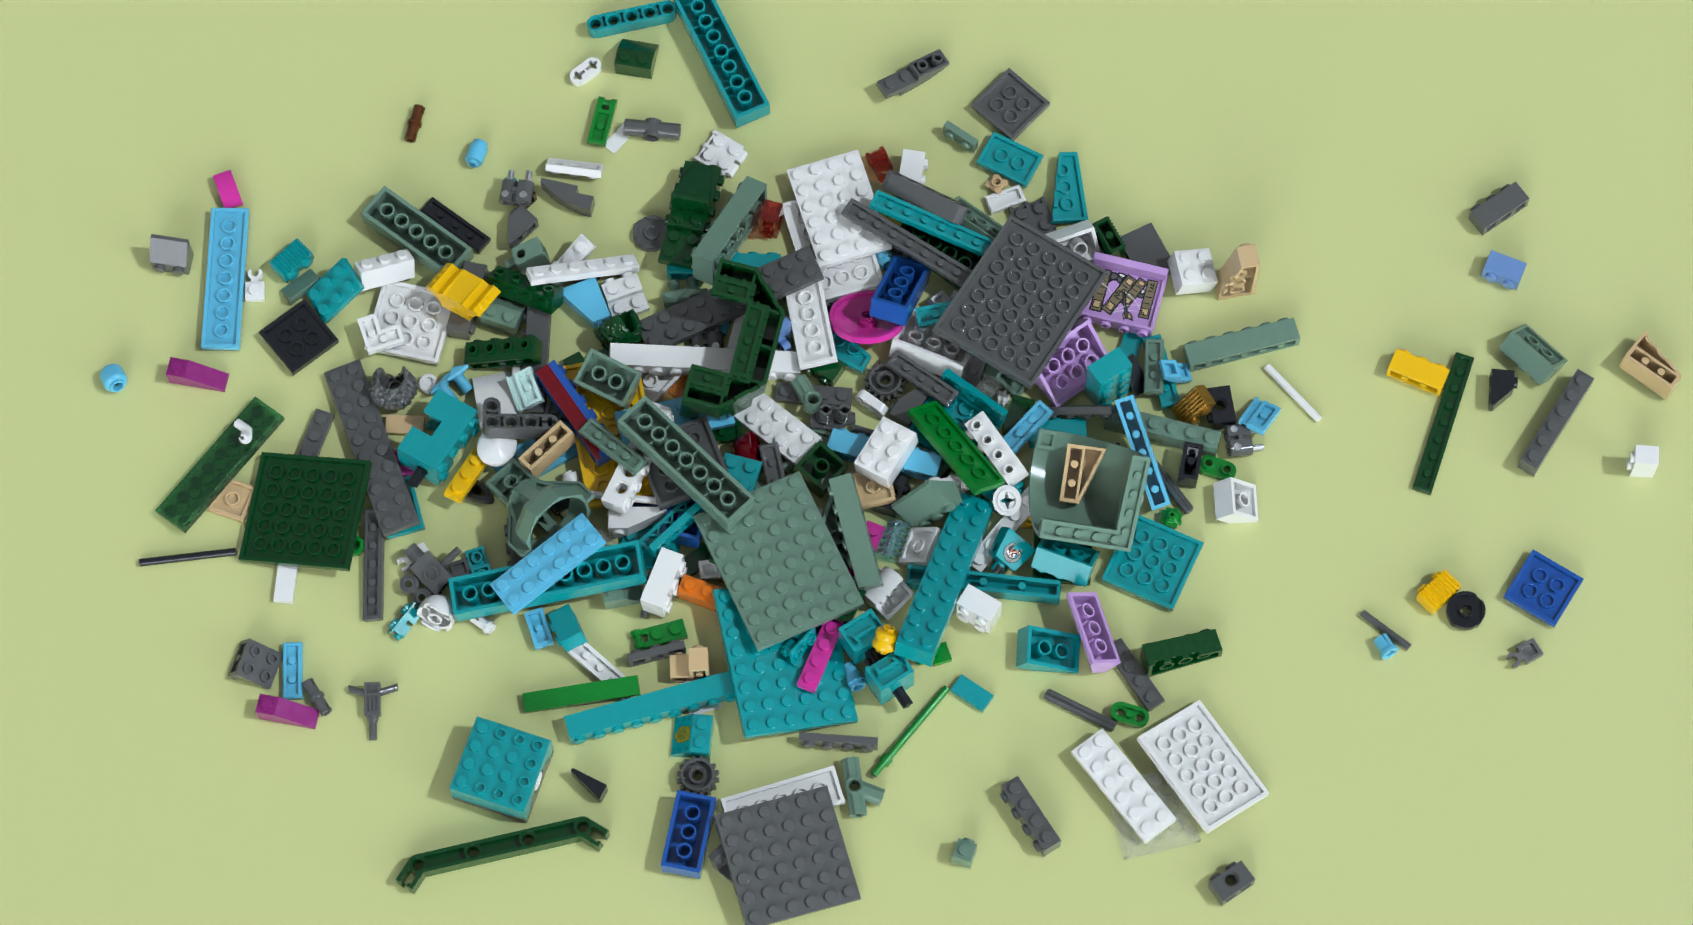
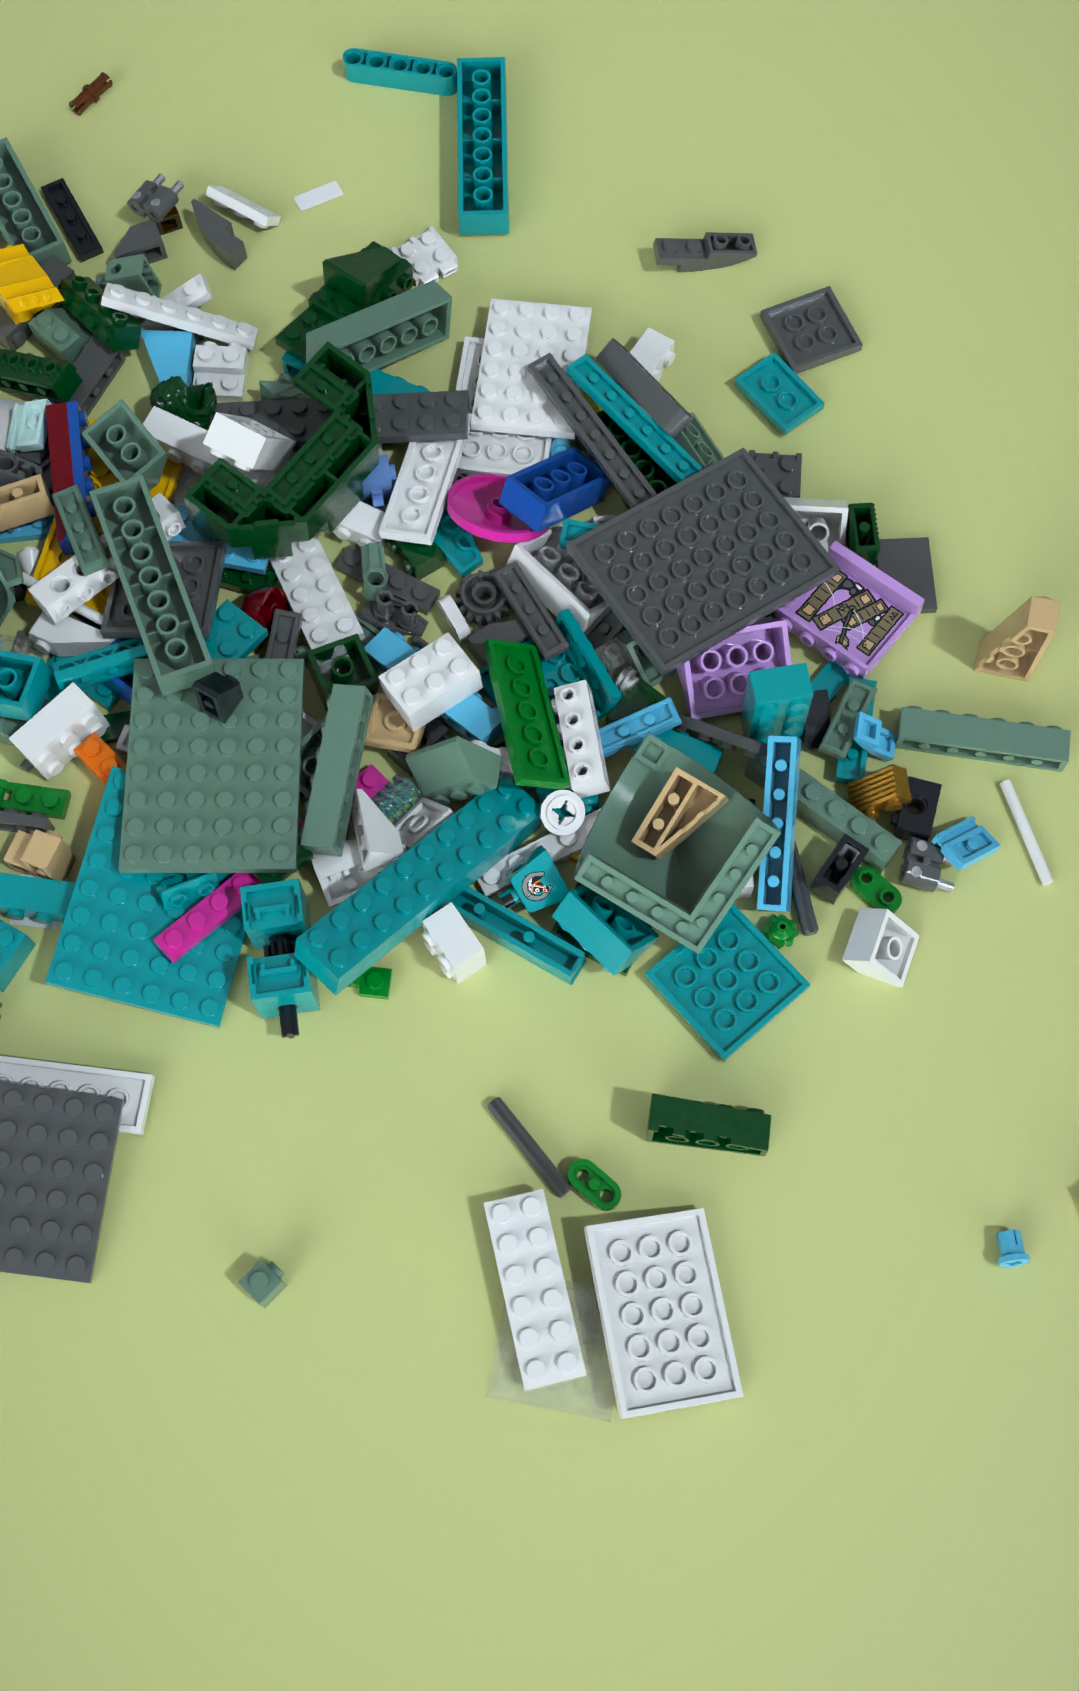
camera: 25 degrees right, 0 degrees up
(476, 153) = (139, 149): medium azure brick -> none
(585, 71) = (317, 110): white beam -> none
(602, 122) = (304, 169): green plate -> none
(636, 58) = (381, 116): dark green slope -> none
(650, 233) = (287, 309): dark grey tile -> none
(652, 129) = (357, 198): dark grey piece -> none
(699, 345) = (249, 443): none -> white brick
(765, 516) = (218, 695): none -> black slope
(771, 219) = (441, 346): clear red brick -> none
(832, 741) = (167, 1039): dark grey plate -> none
(854, 678) = (239, 967): medium azure cone -> none
(866, 792) = (176, 1130): sand green piece -> none
(879, 162) = (613, 329): clear red piece -> none
(885, 639) = (288, 927): yellow piece -> none
(886, 759) = (229, 1097): green bar -> none
(899, 563) = (375, 835): none -> white slope
(964, 139) = (733, 348): sand green plate -> none
(972, 693) = (392, 1056): teal tile -> none
(997, 189) = (748, 416): tan plate -> none
(1007, 198) = (751, 438): white tile -> none
(1031, 817) = (381, 1272): dark grey brick -> none
(1047, 650) = (523, 1042): teal slope -> none
(1068, 196) = (835, 462): teal wing -> none
(1093, 631) = (595, 1043): lavender slope -> none
(1137, 678) = (629, 1130): dark grey plate -> none
(1192, 271) = (956, 617): white brick -> none
(1225, 892) = (644, 1514): dark grey brick -> none
(1384, 629) = (1021, 1224): dark grey bar -> none

